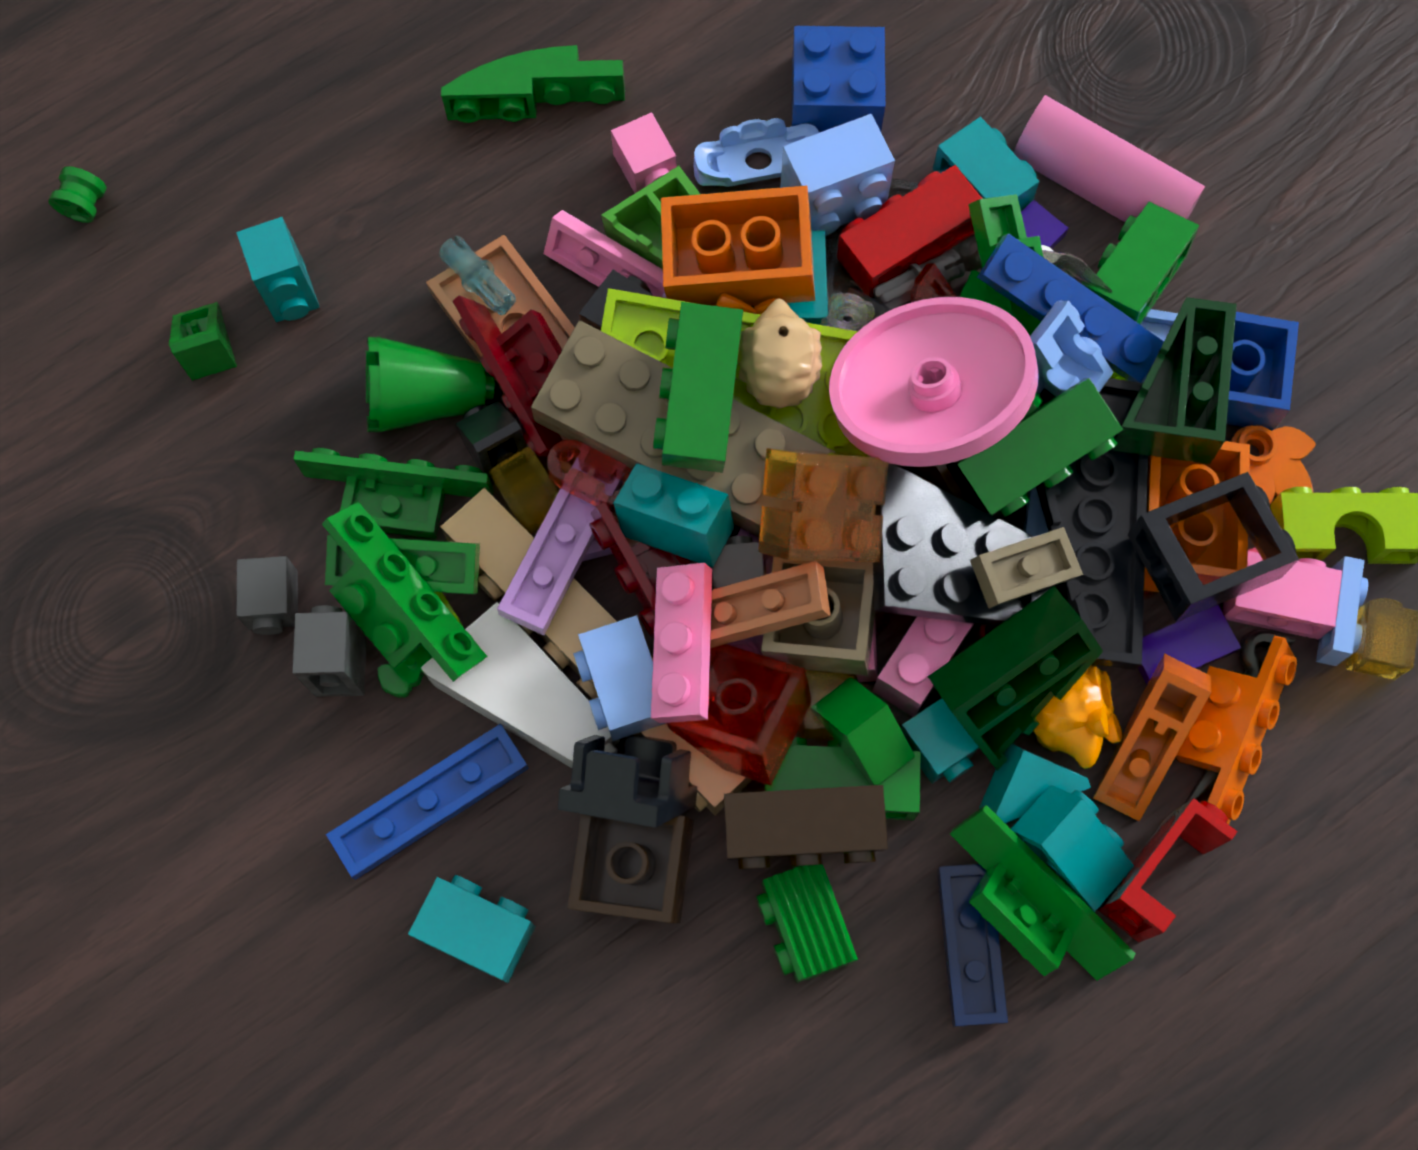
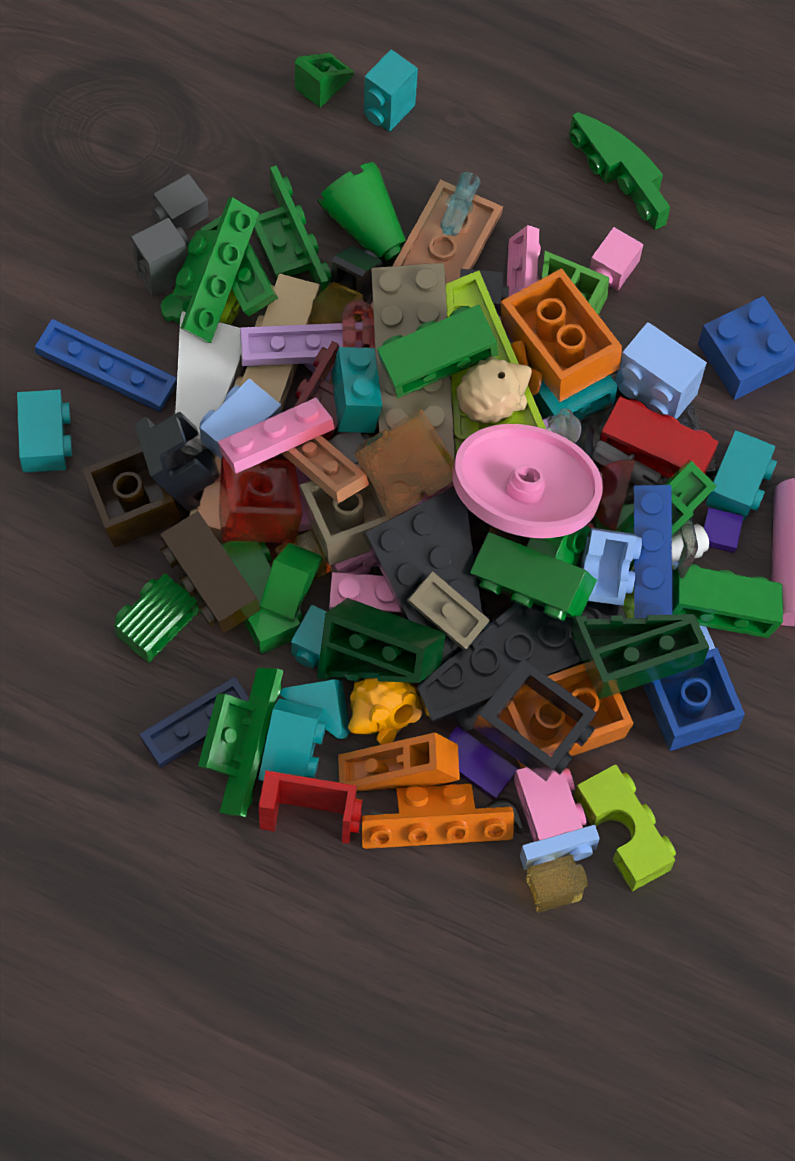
camera: 55 degrees right, 5 degrees down
(518, 361) = (414, 245): dark red bracket -> none
(724, 160) = (643, 307): light blue piece -> none
(1278, 459) = (644, 765): orange plate -> none

